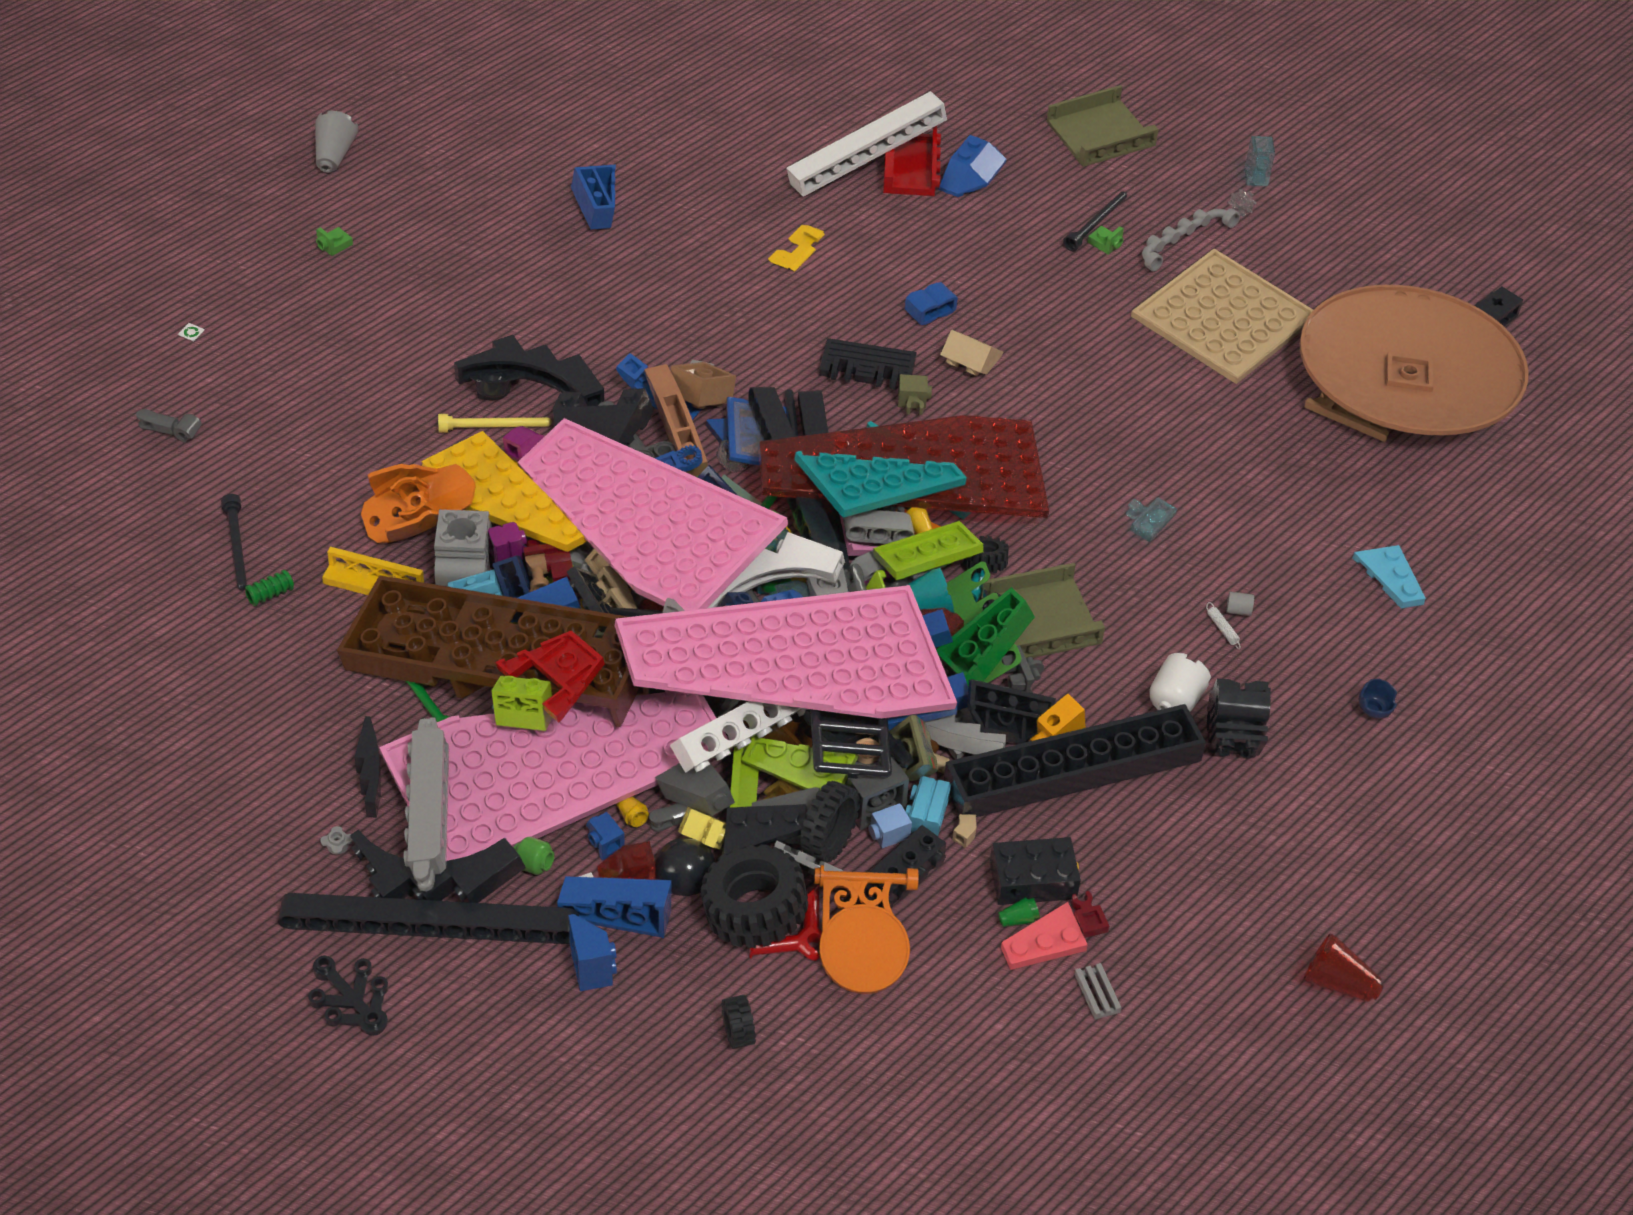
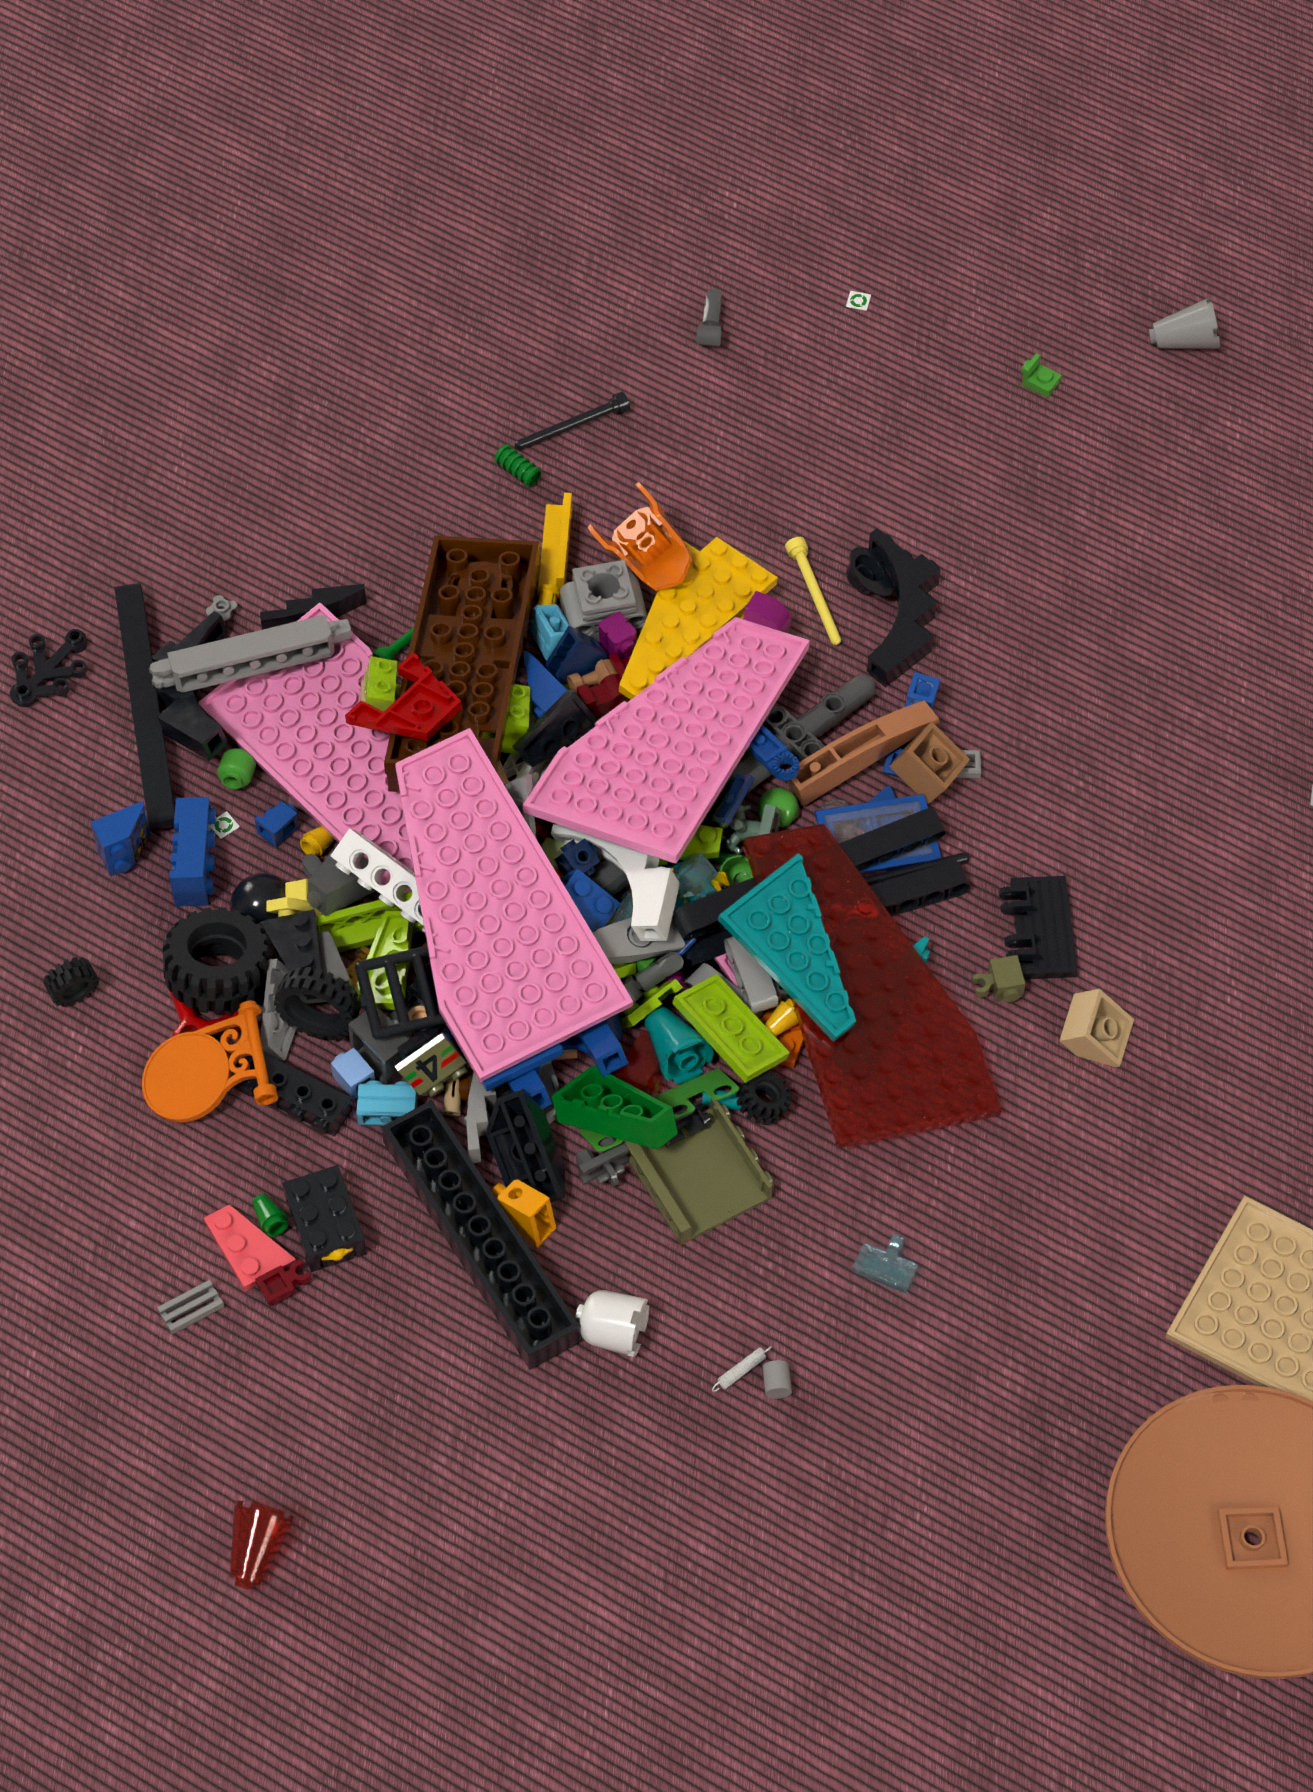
camera: 80 degrees right, 10 degrees up
(595, 194) = (1208, 594): blue wedge -> none
(612, 421) = (815, 680): black wedge -> none
(629, 862) = (244, 853): clear red slope -> none
(804, 237) = (1238, 820): yellow piece -> none
(931, 303) = (1165, 970): blue brick -> none
(965, 831) = (369, 1147): tan piece -> none
(1238, 718) = (575, 1385): black piece -> none
(1377, 698) = (664, 1545): dark blue hair -> none
(1394, 573) = (886, 1552): medium azure wing -> none

